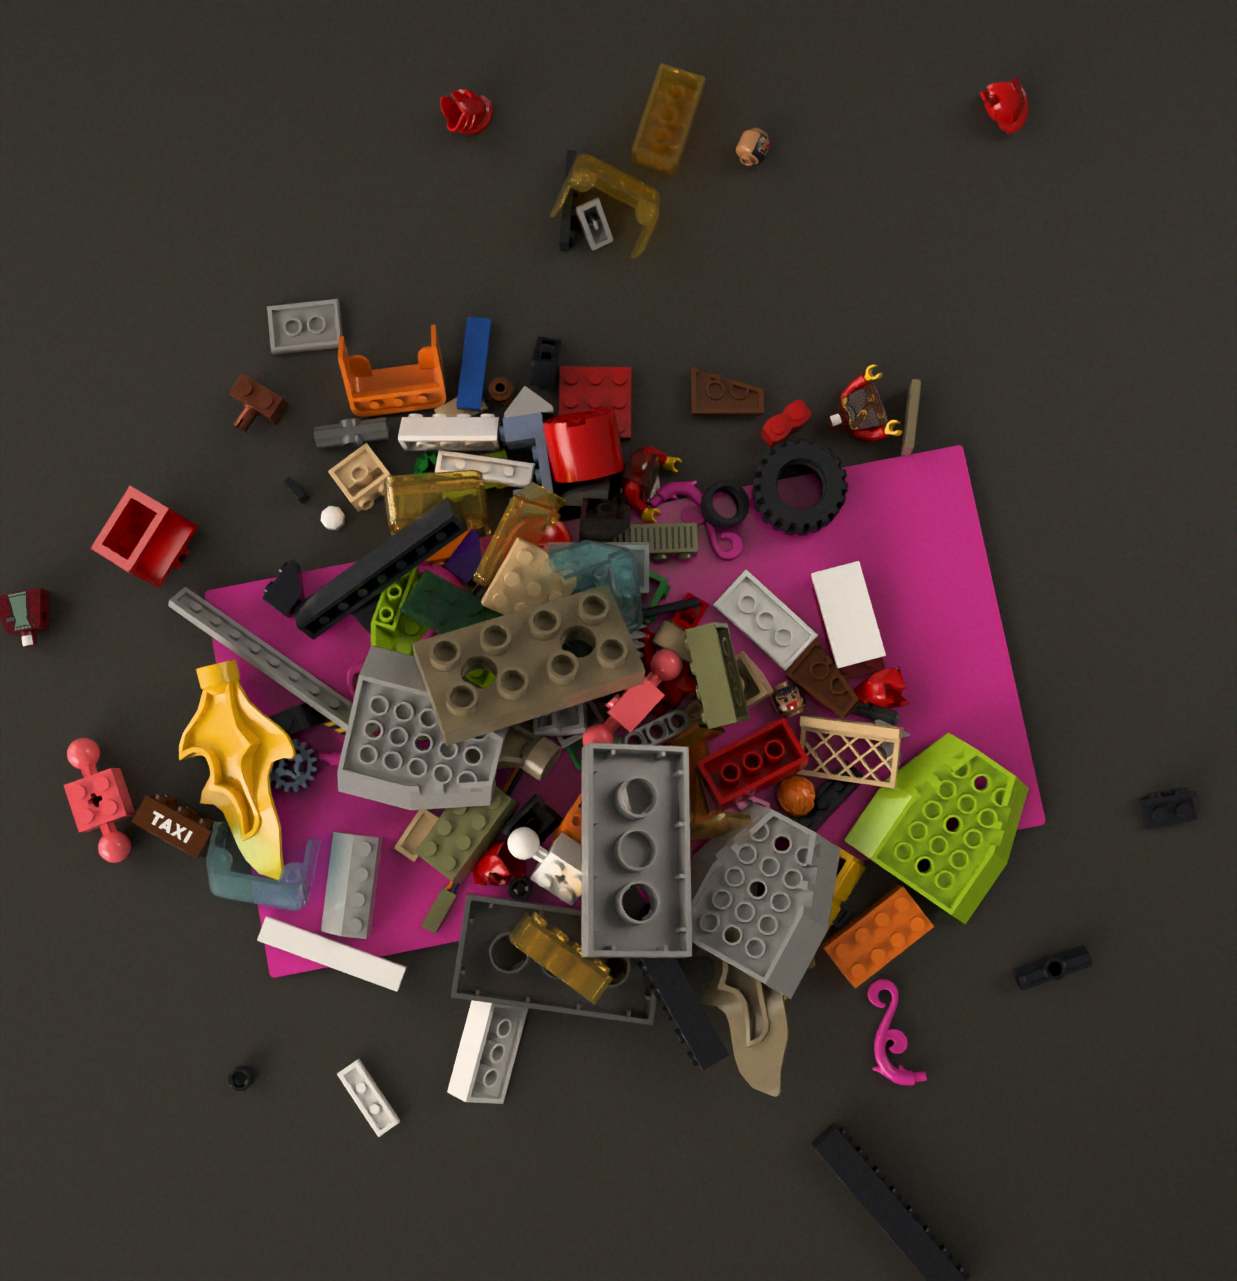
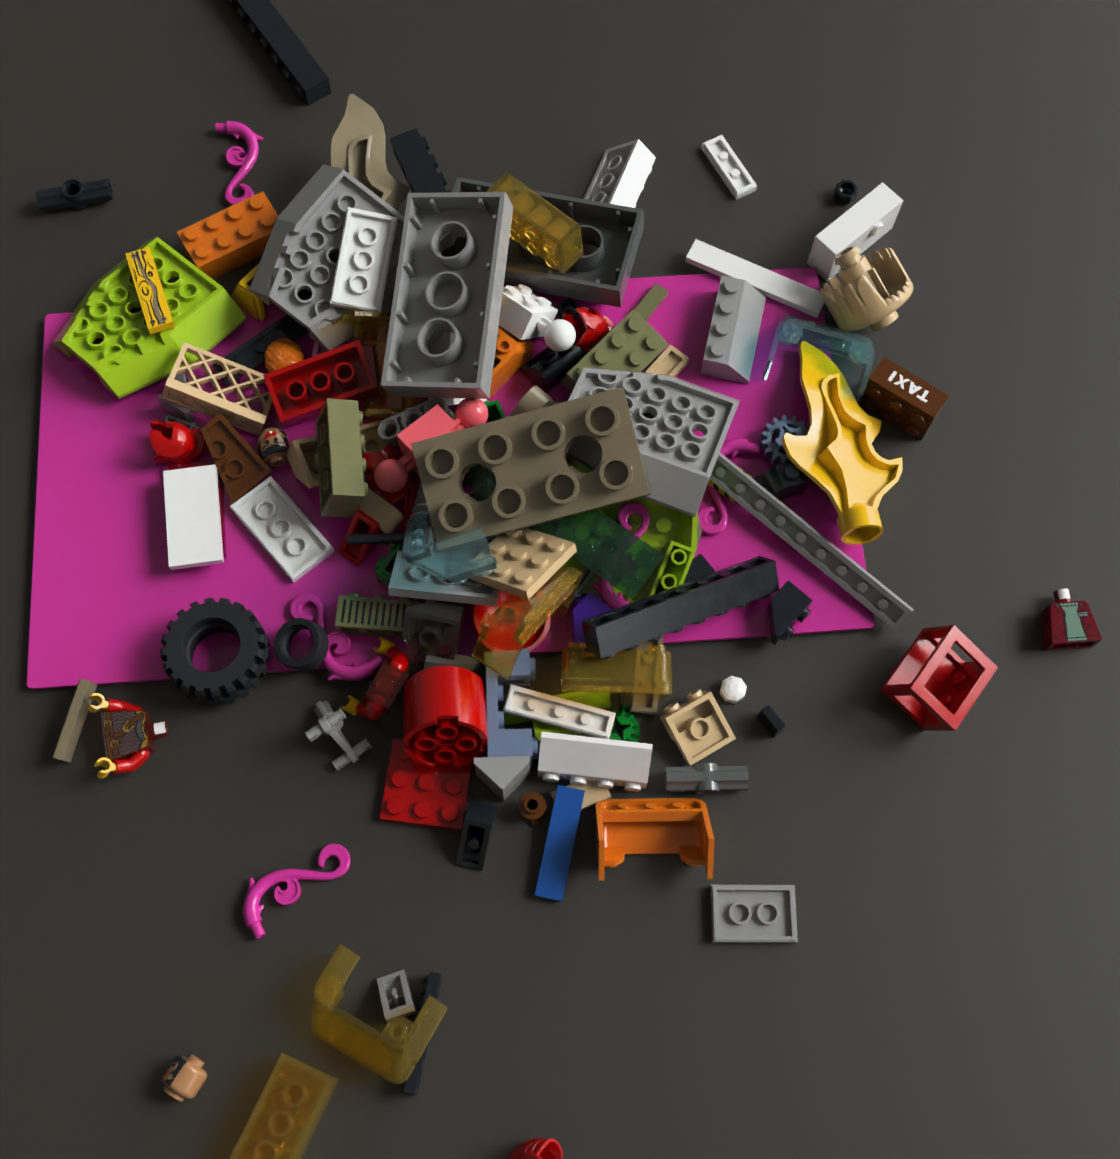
camera: 175 degrees left, 15 degrees down
(84, 795) = (983, 435): coral brick -> none
(214, 938) = (868, 289): none -> tan piece
(228, 1019) = (857, 226): none -> white brick
(256, 401) = (811, 825): copper brick -> none
(681, 430) = (331, 724): none -> light grey axle
(698, 312) = (255, 891): none -> dark pink plant
(719, 396) = (281, 772): reddish brown wing -> none
(728, 886) = (363, 260): none -> white tile
(790, 421) = (210, 734): red brick -> none
(942, 843) = (150, 290): none -> yellow tile

